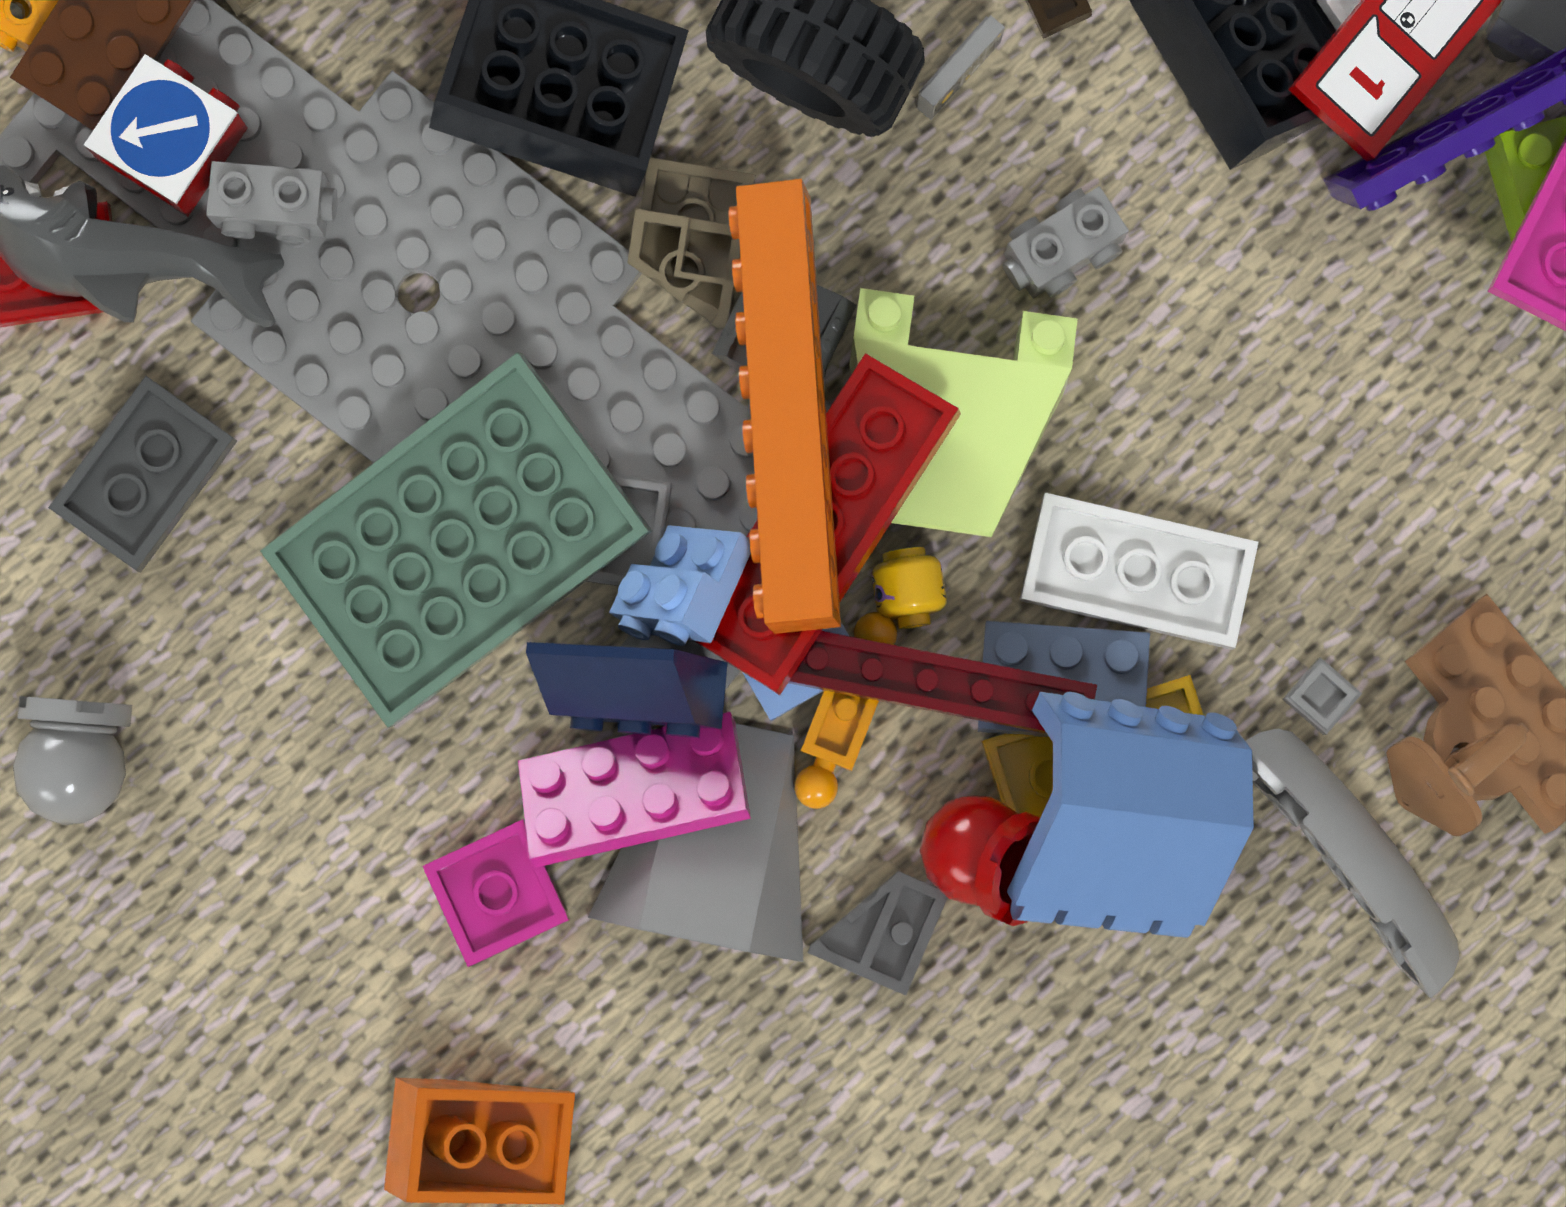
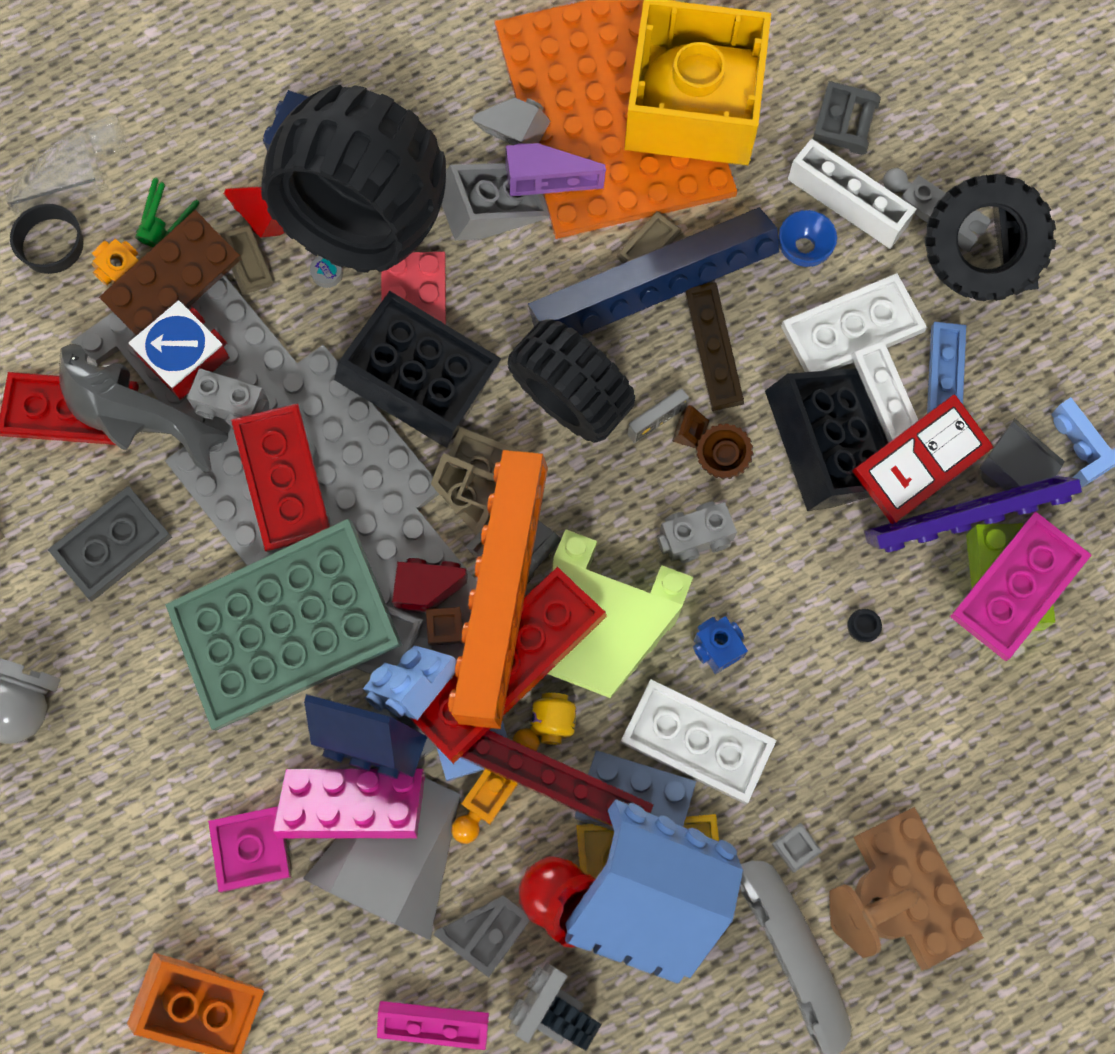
camera: 15 degrees right, 10 degrees down
(390, 307) = (281, 476): none -> red tile
(663, 429) = (425, 585): none -> dark red slope
(708, 485) = (444, 626): none -> reddish brown plate
(840, 1083) = (432, 1025): none -> dark pink plate
(1012, 1021) = (552, 1011): none -> light grey plate
(1016, 74) = (690, 427): none -> reddish brown slope
(1079, 101) = (724, 451): none -> reddish brown hat
(1137, 432) = (717, 655): none -> blue brick
(1355, 331) = (864, 625): none -> black plate

